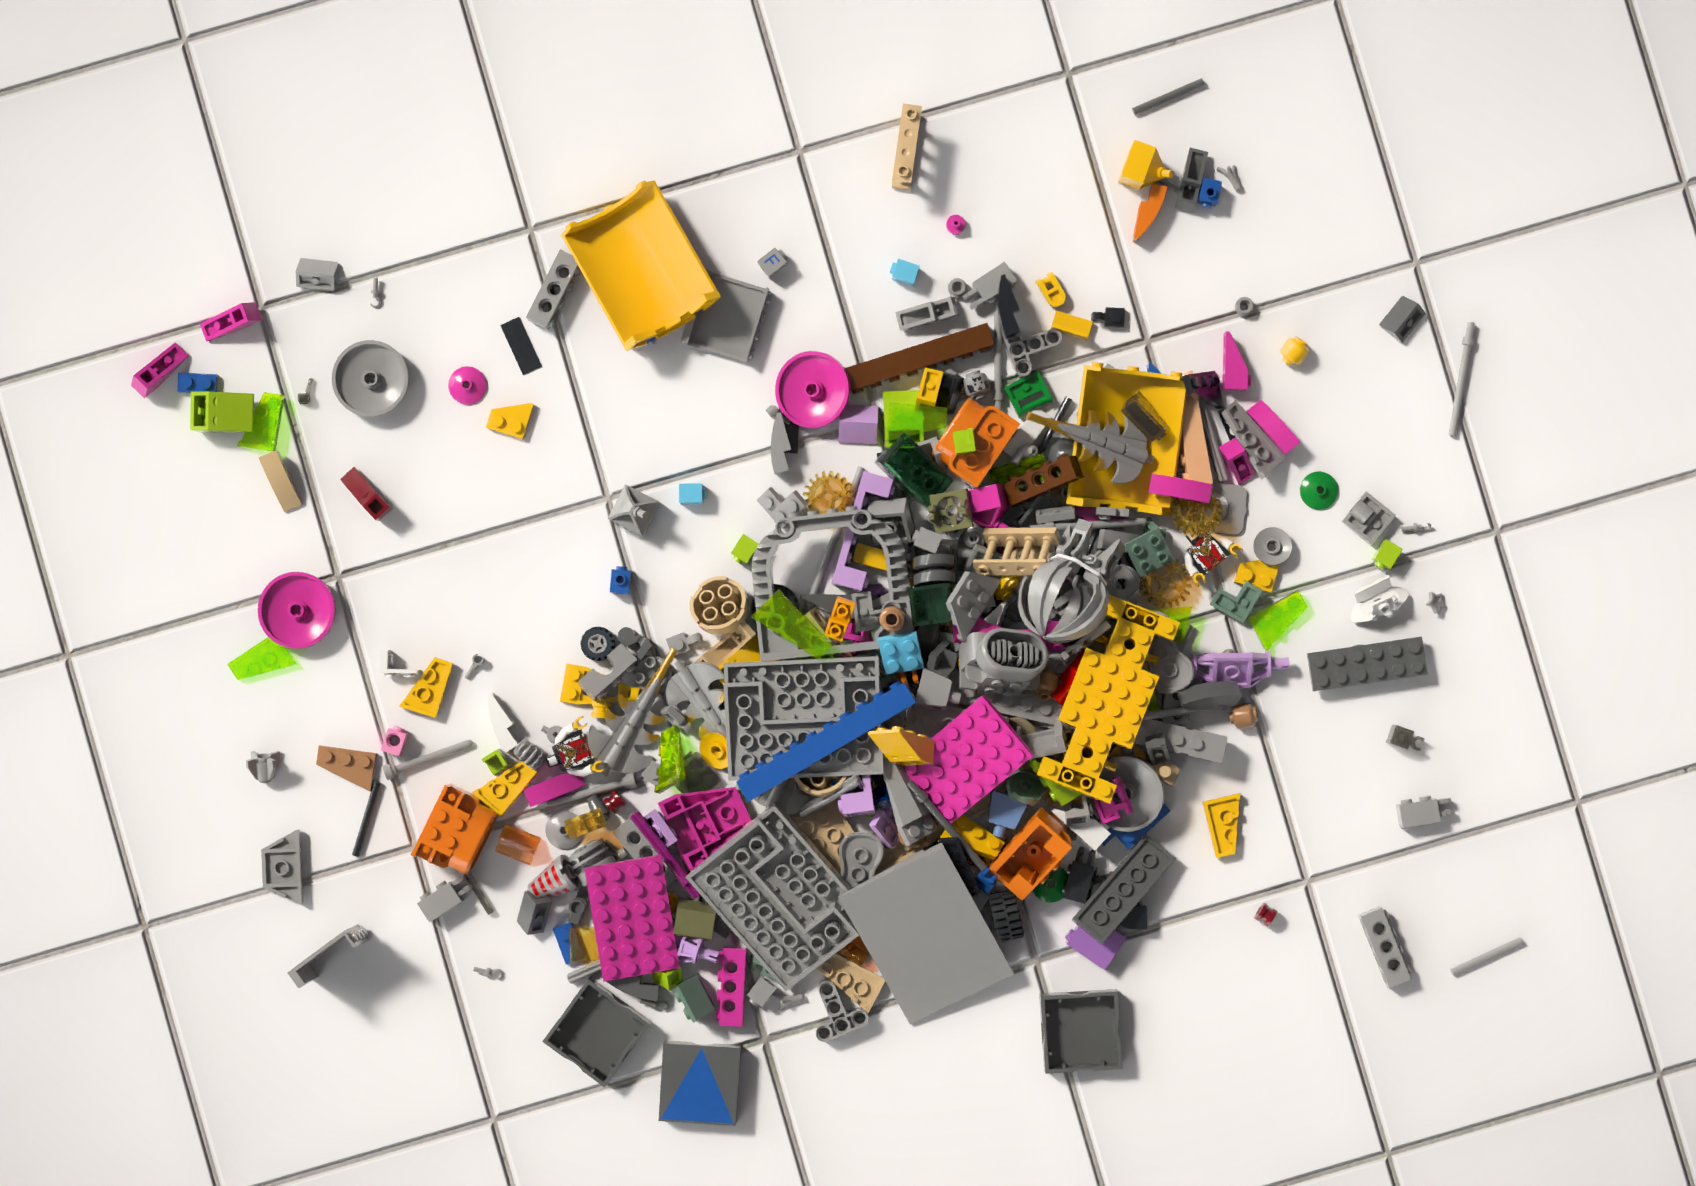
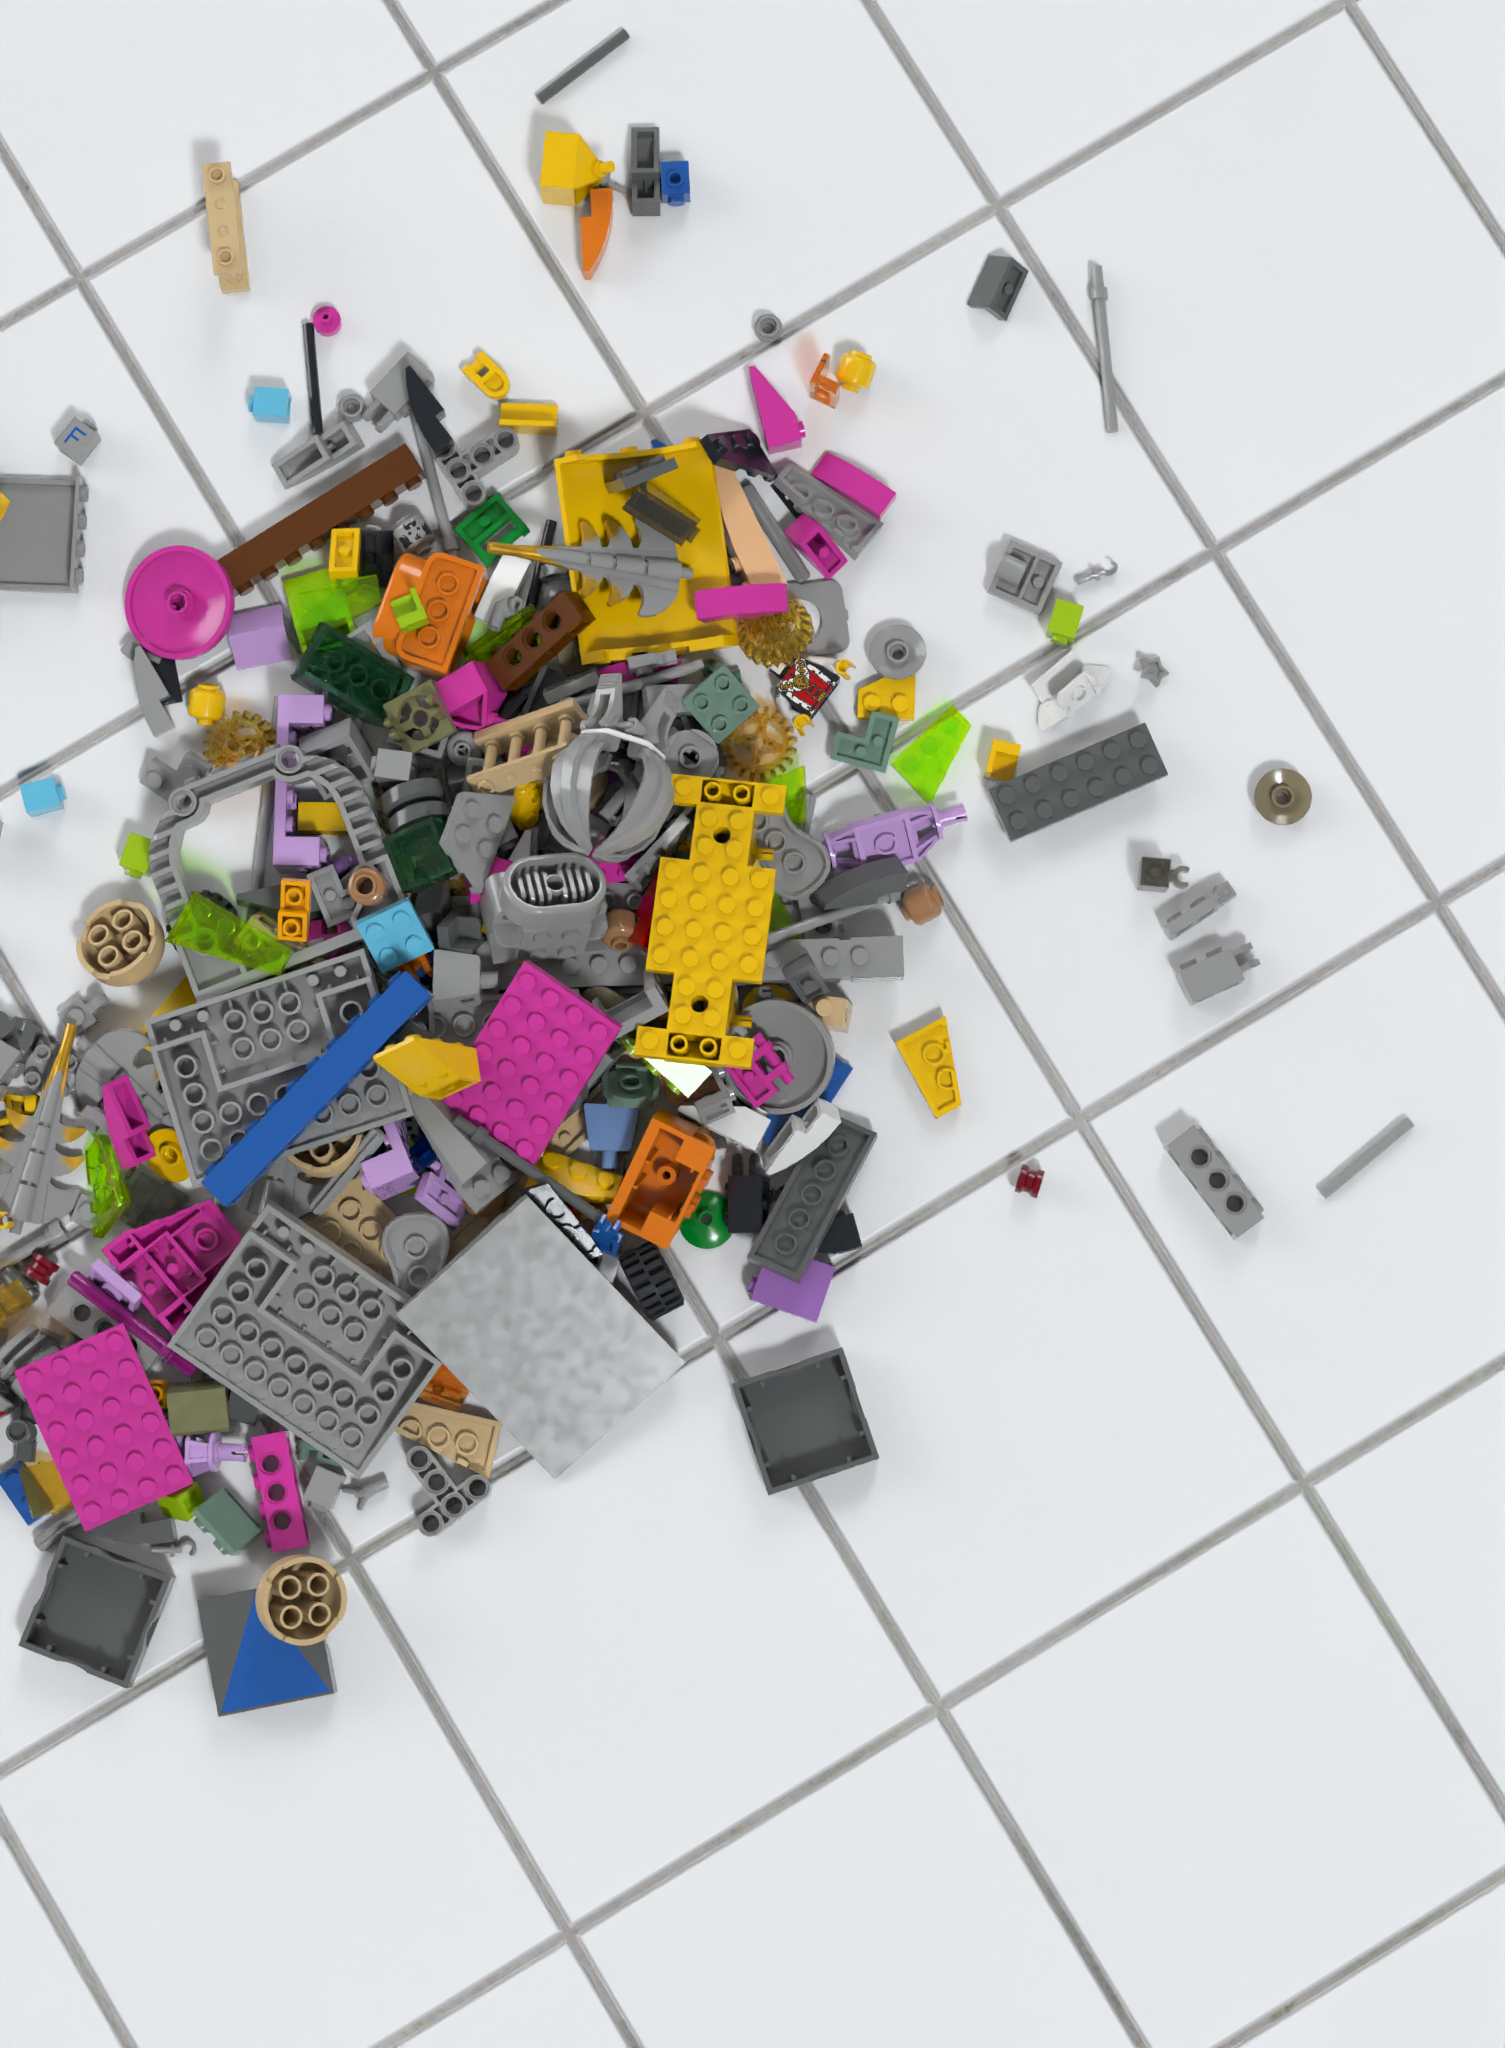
camera: 15 degrees left, 5 degrees down
(694, 725) = (126, 1123): none -> dark pink slope
(728, 645) = (150, 995): tan arch -> none
(731, 1064) = (315, 1603): none -> tan cylinder
(813, 460) = (206, 703): none -> yellow head
(936, 260) = (313, 379): none -> black bar
(1112, 317) = (584, 392): black plate -> none
(1126, 848) = (801, 1136): none -> white slope
(1137, 391) = (640, 473): none -> dark grey plate
(1230, 174) = (701, 152): light grey bar -> none
(1271, 359) = (822, 388): none -> clear orange panel
(1309, 492) = (937, 570): green dish -> none
(1321, 635) = (1002, 760): none -> yellow panel
(1424, 766) = (1199, 910): none -> light grey hinge
(1507, 708) = (1292, 786): none -> dark tan dish

